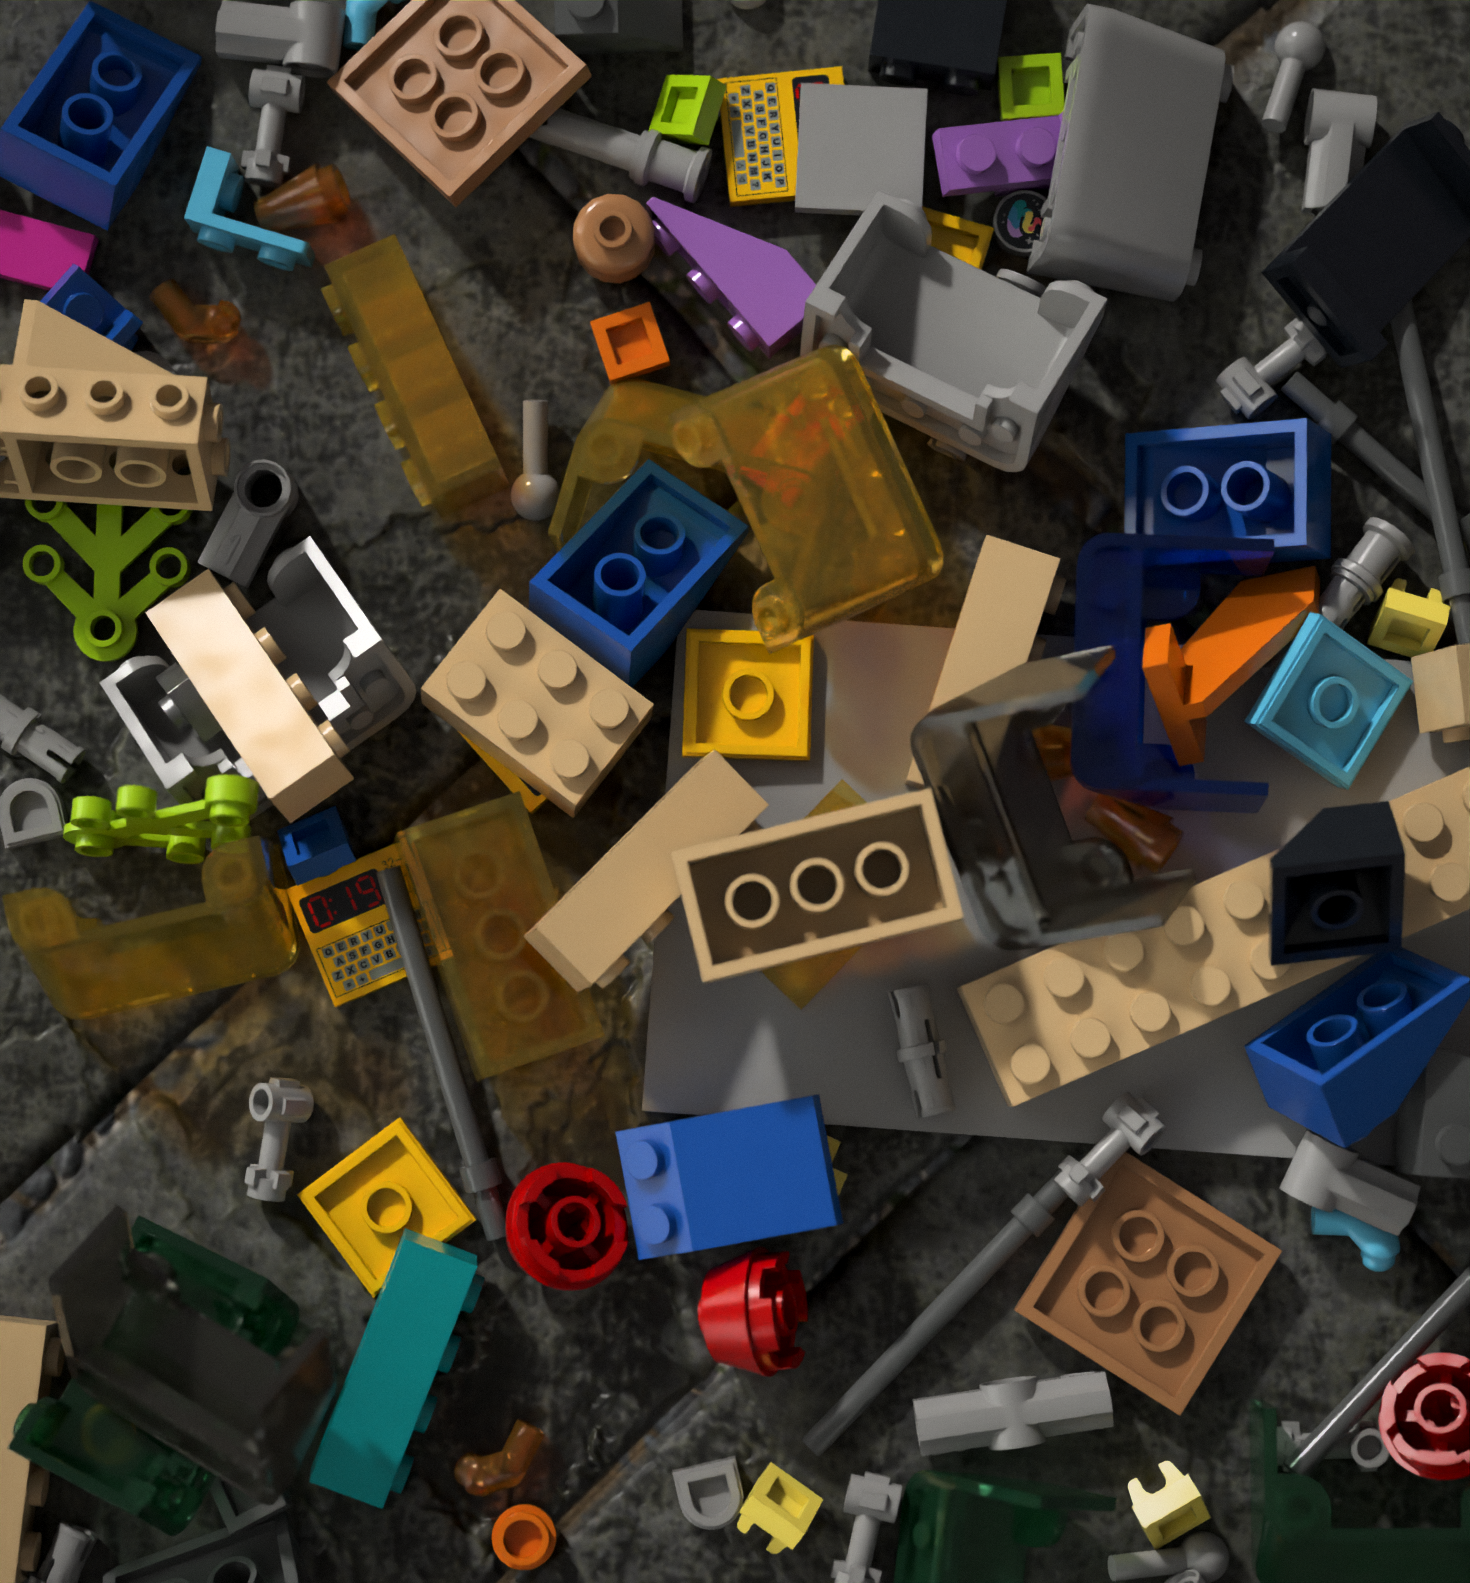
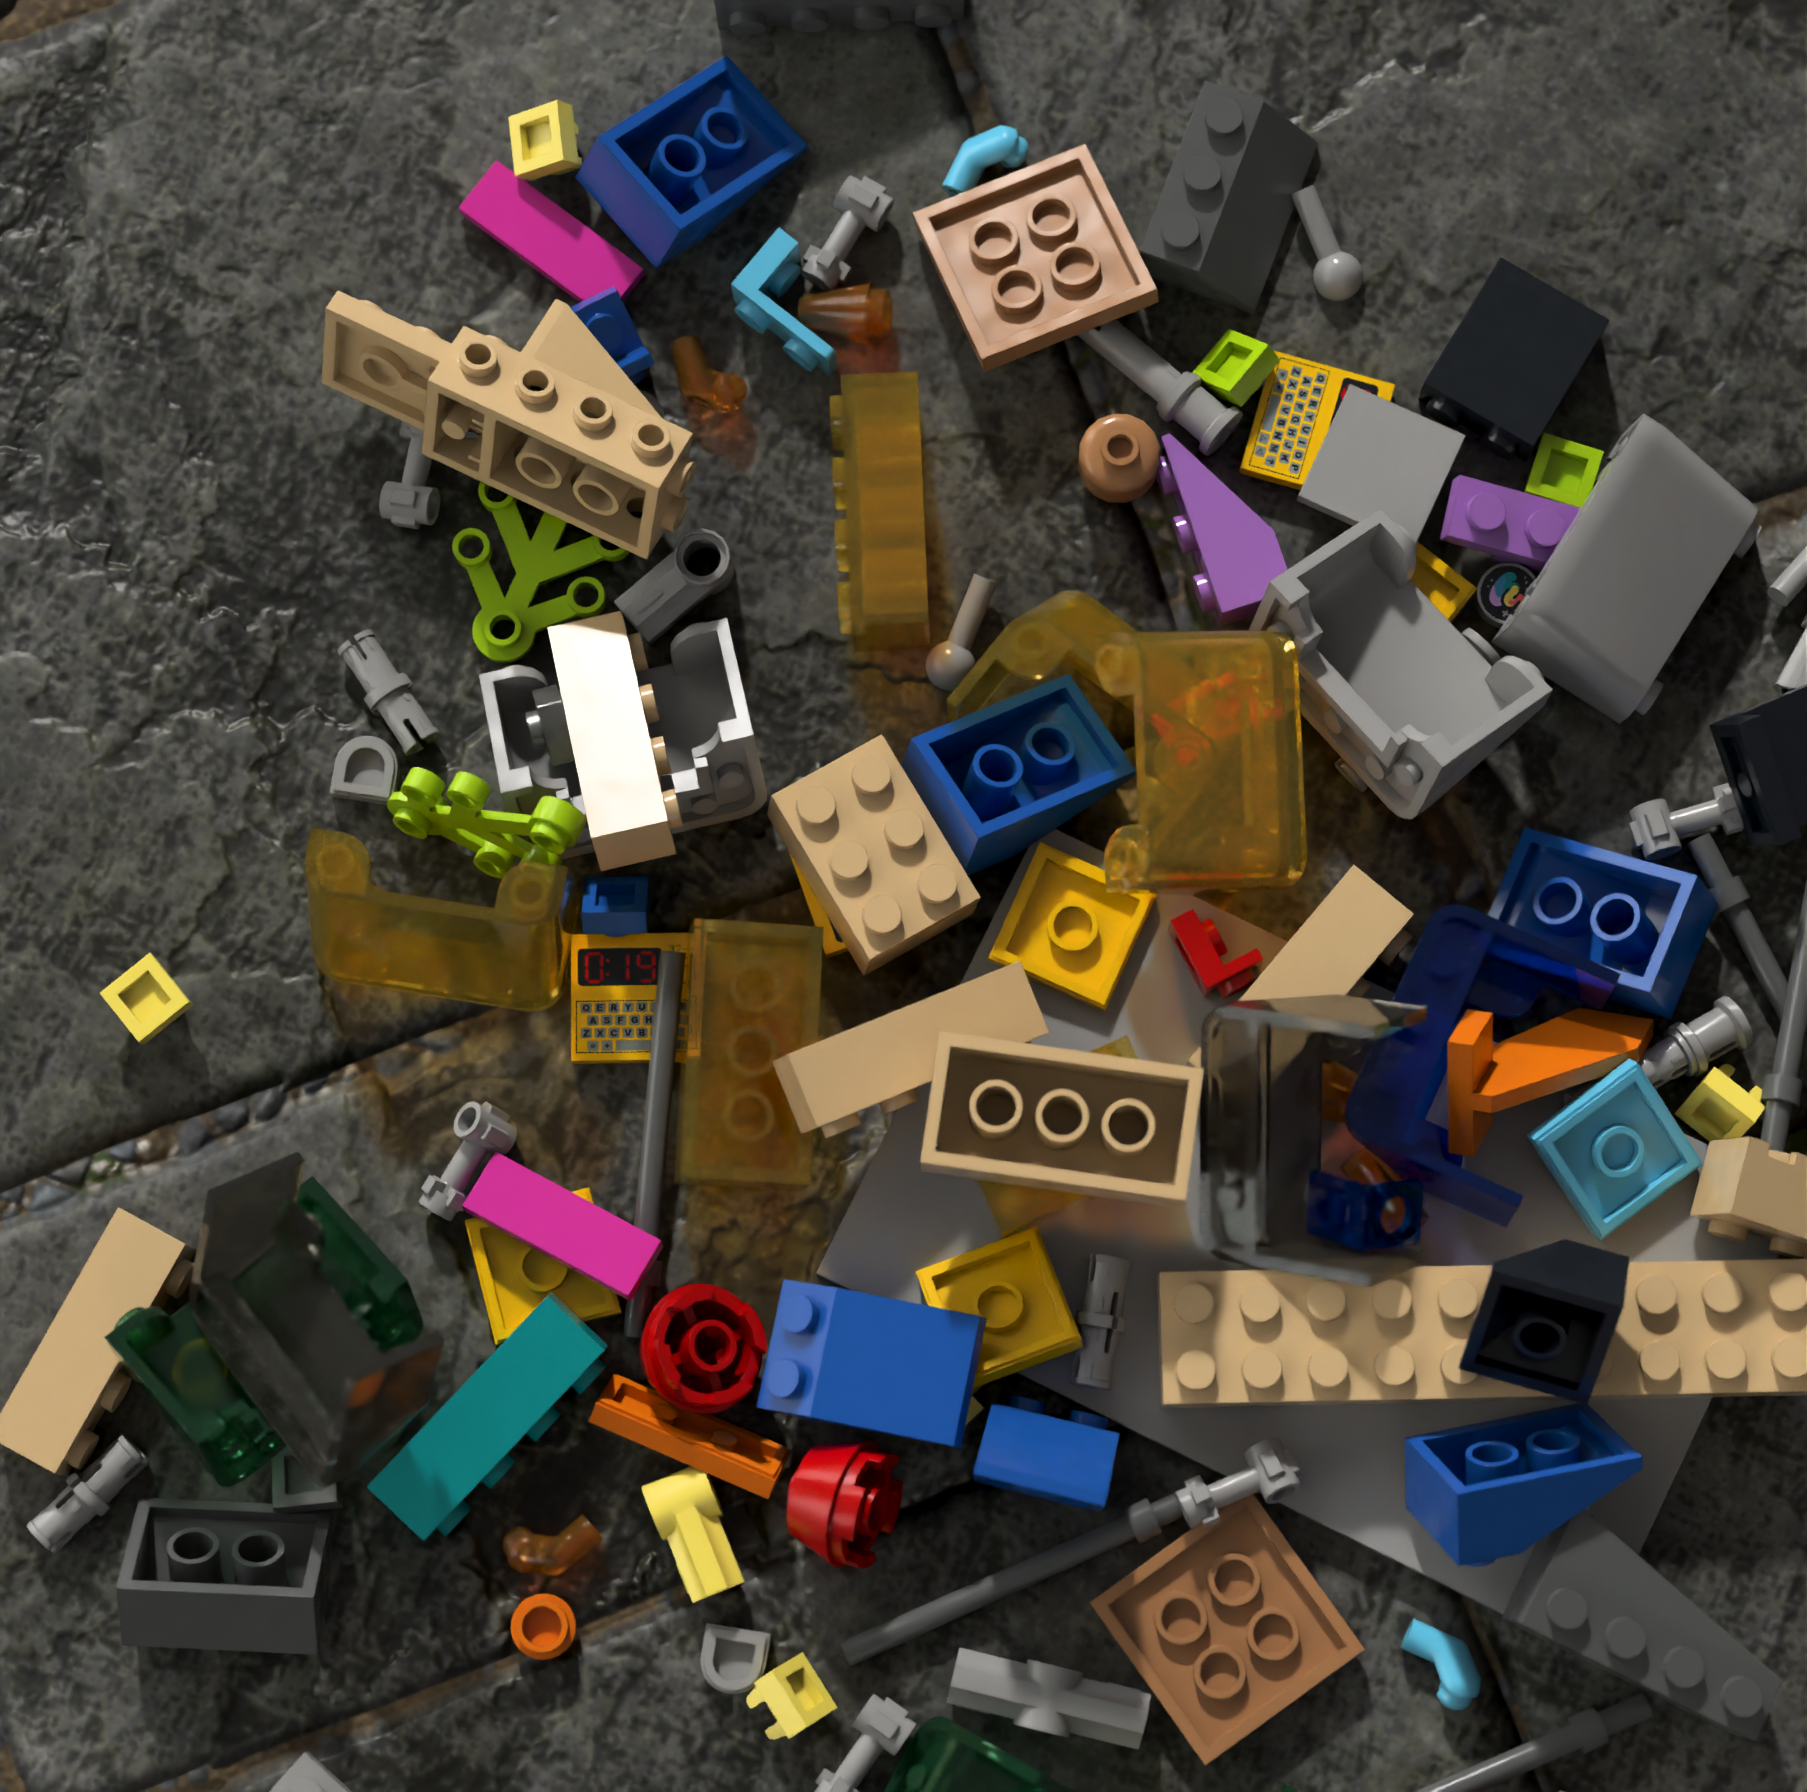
camera: 25 degrees right, 5 degrees down
(296, 36) = (902, 161): light grey piece -> none
(390, 1164) = (563, 1226): none -> dark pink tile
(600, 1311) = (690, 1437): none -> orange tile
(617, 1383) = (689, 1518): none -> light yellow piece
(630, 342) = (1095, 560): orange plate -> none
(833, 1056) = (1018, 1295): none -> yellow tile
(876, 669) = (1201, 950): none -> red bracket
(924, 1194) = (1047, 1454): none -> blue slope
(1115, 857) = (1352, 1210): none -> clear blue bracket
(1340, 1179) = (1442, 1598): light grey piece -> none

